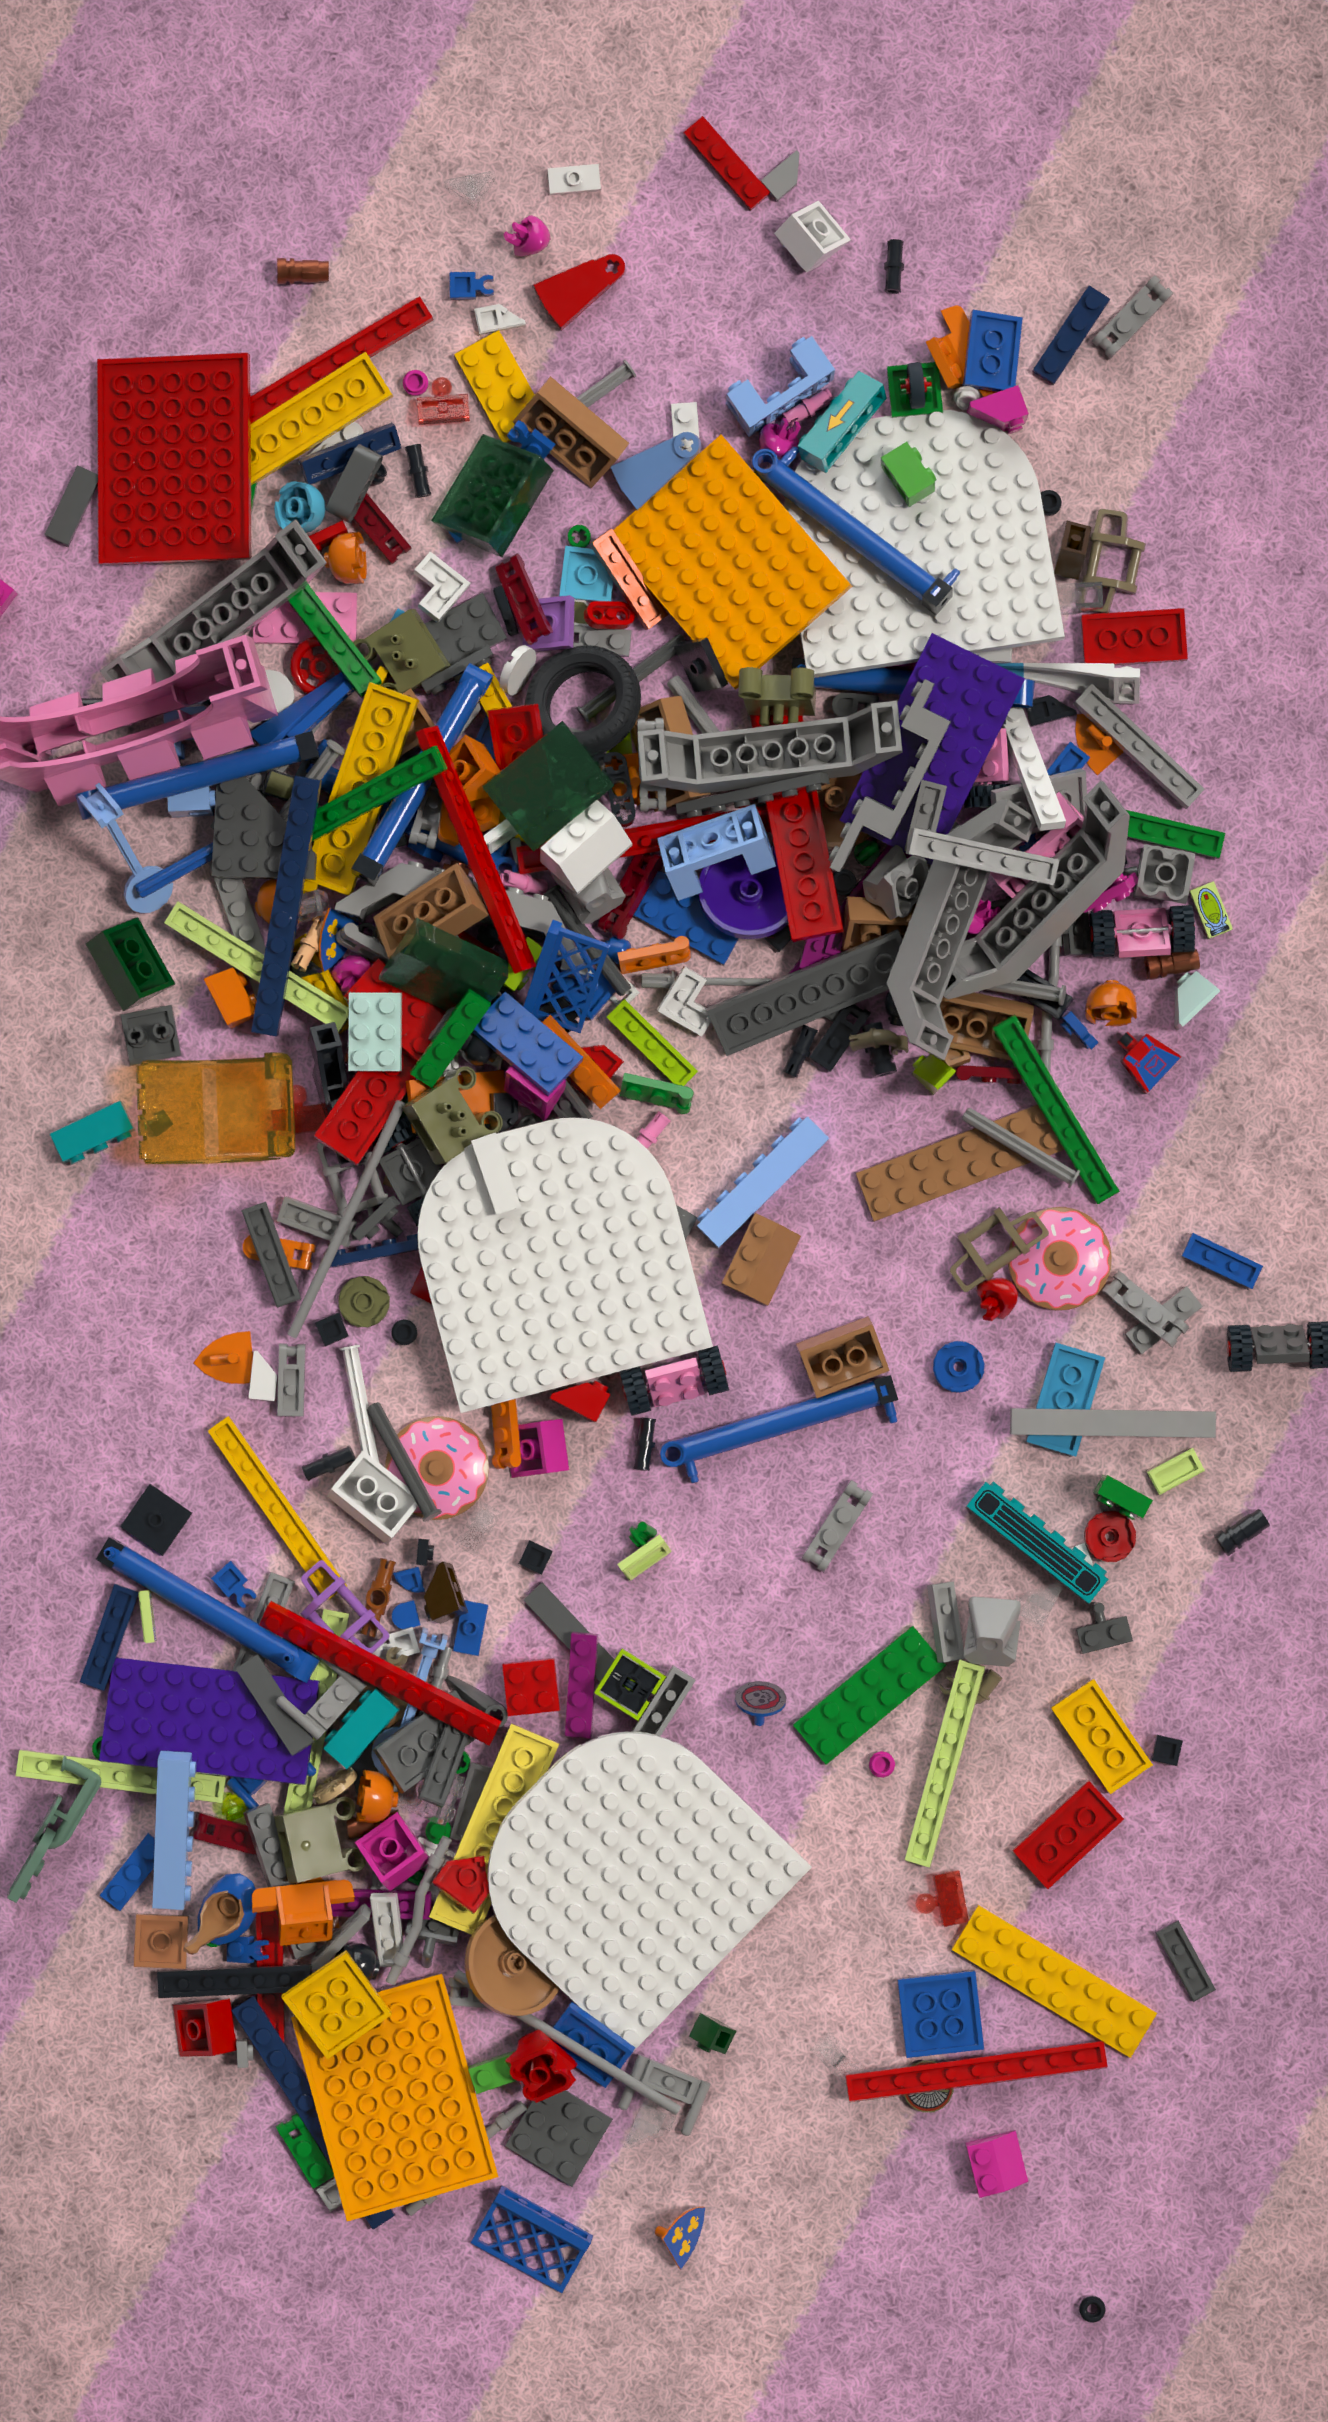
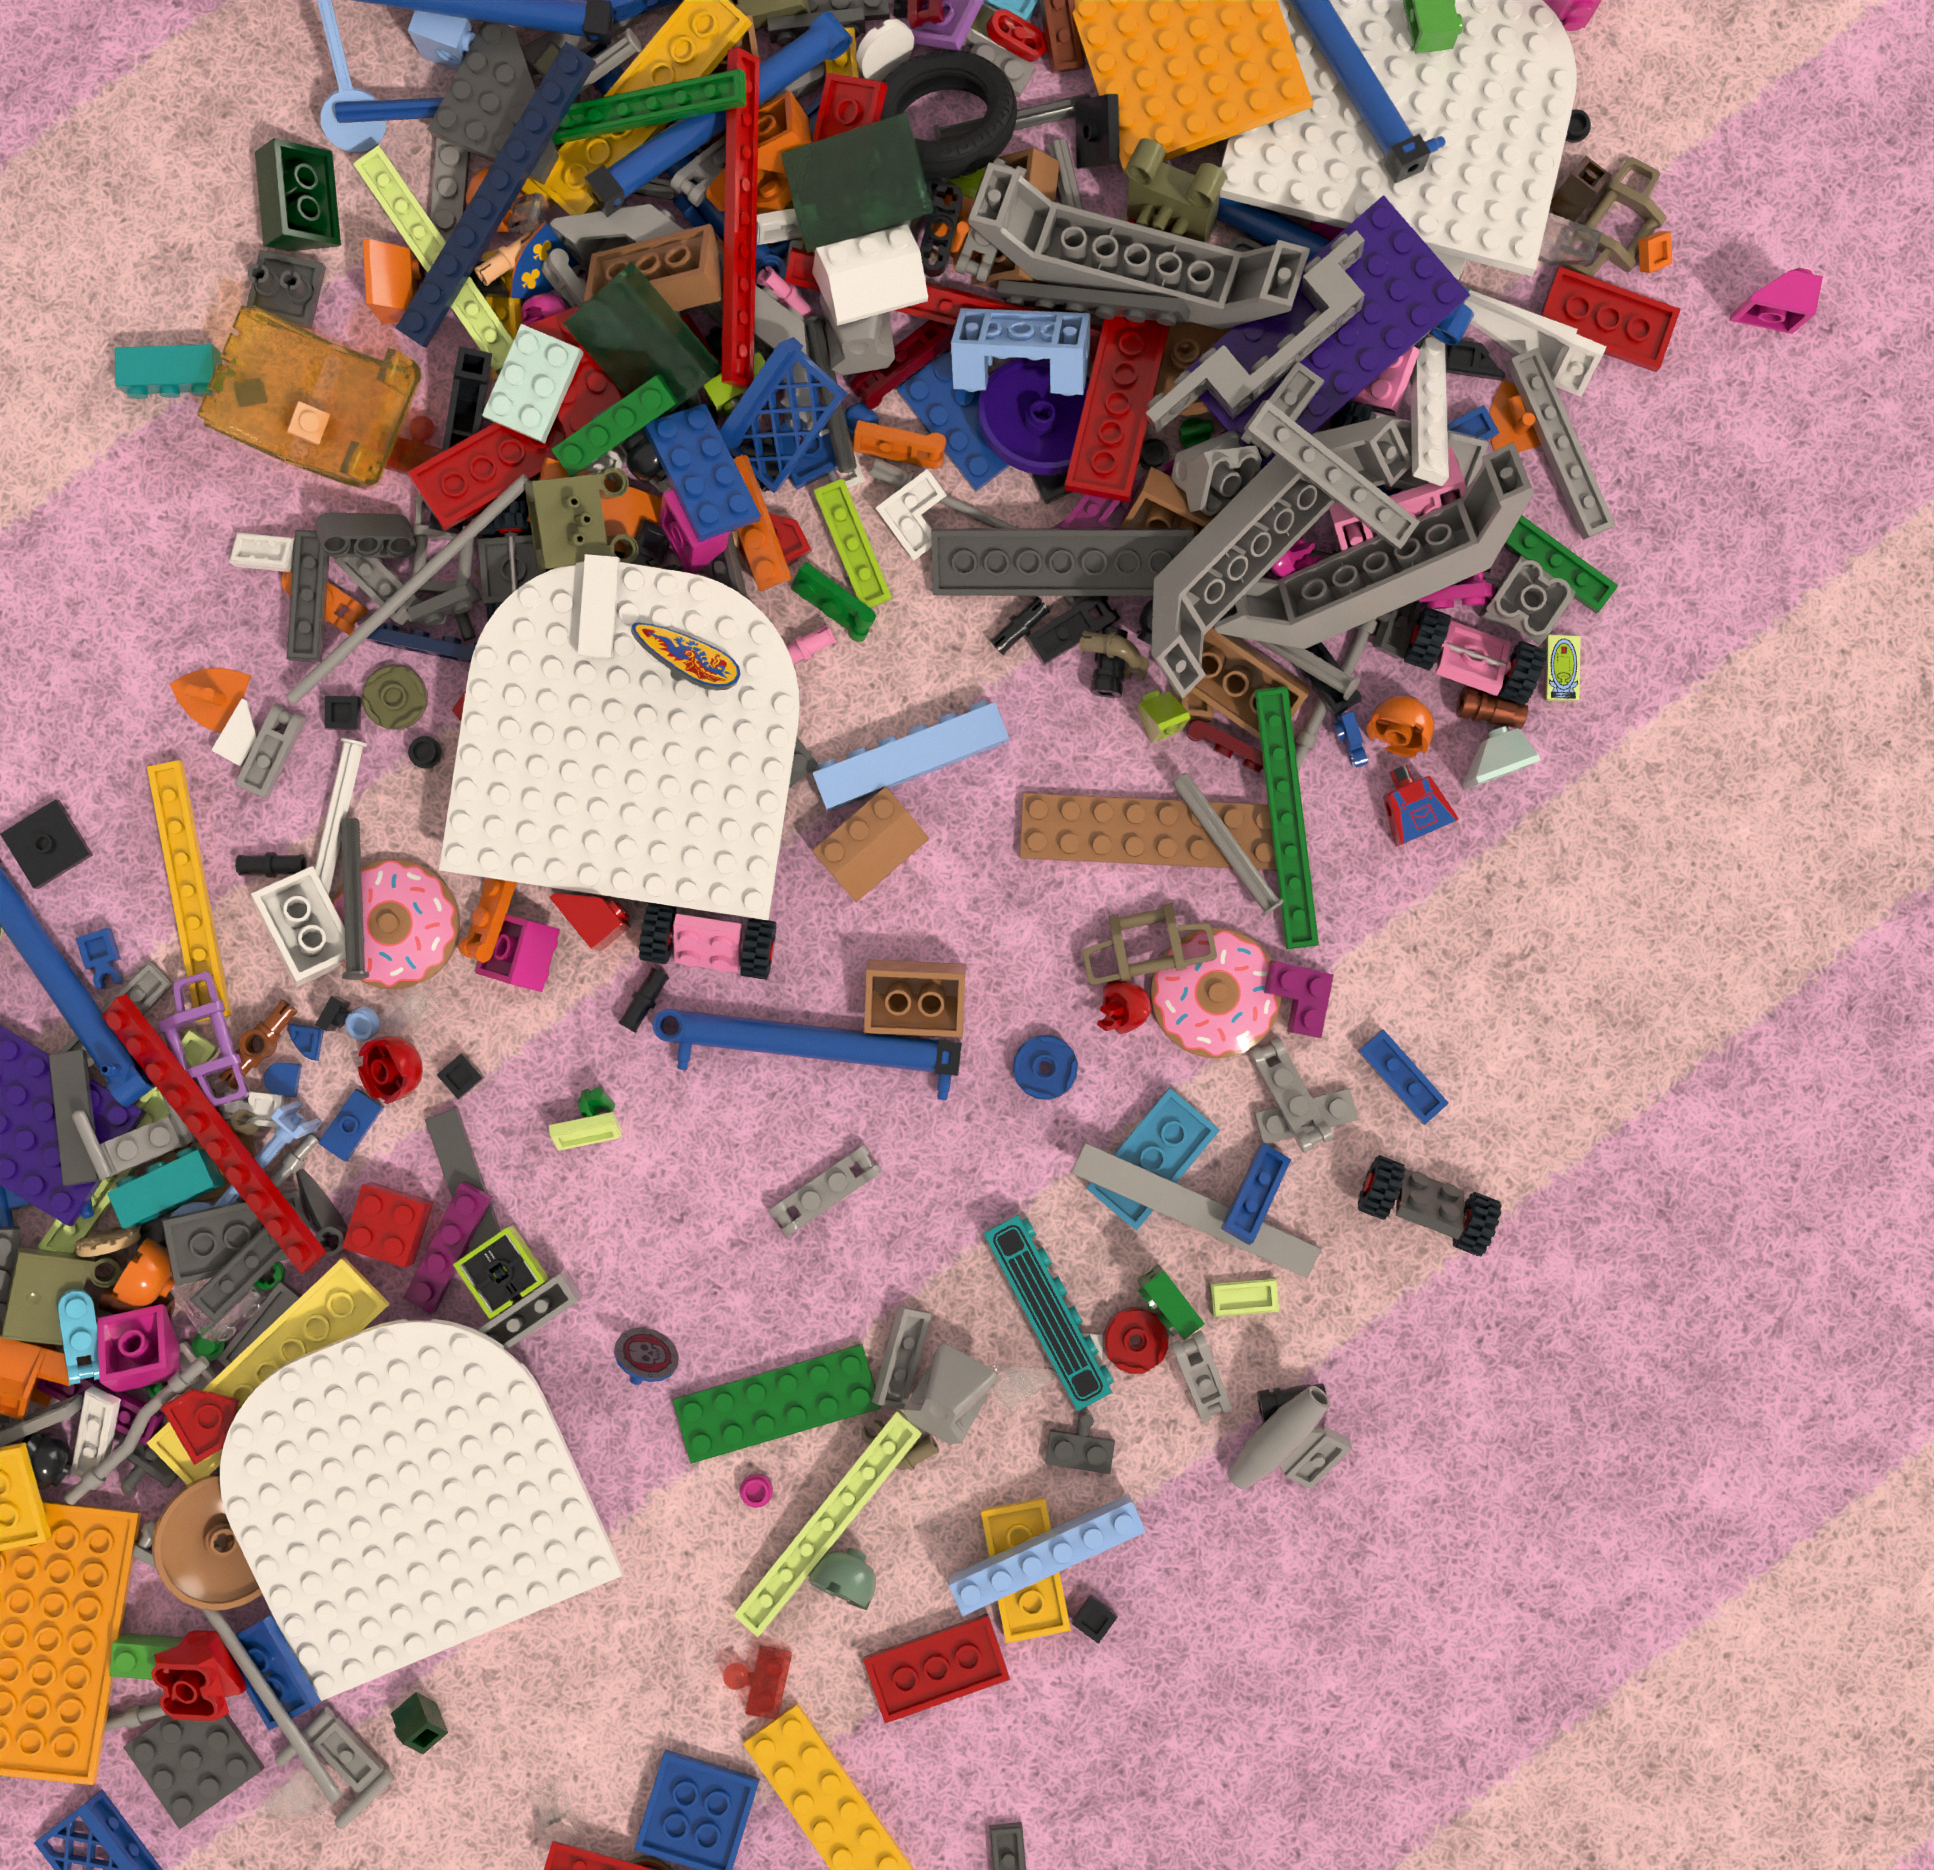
camera: 20 degrees right, 0 degrees up
(214, 1128) = (308, 423): none -> light nougat plate
(222, 1236) = (263, 552): none -> white plate
(295, 1192) = (365, 535): none -> dark grey beam
(348, 1860) = (79, 1334): none -> medium azure plate
(444, 1595) = (334, 1074): dark brown slope -> none
(447, 1549) = (362, 1023): none -> light blue tile
(484, 1573) = (390, 1068): none -> red cylinder
(577, 1182) = (688, 657): none -> shield
(974, 1797) = (845, 1577): none -> sand green cylinder
(1111, 1715) = (1045, 1554): none -> light blue brick
(1127, 1228) = (1309, 993): none -> magenta plate
(1147, 573) = (1655, 251): none -> orange plate
(1151, 1392) = (1256, 1194): none -> blue plate
(1168, 1540) = (1201, 1376): none -> light grey plate
(1254, 1561) = (1292, 1444): none -> light grey plate
(1256, 574) = (1783, 303): none -> dark pink slope

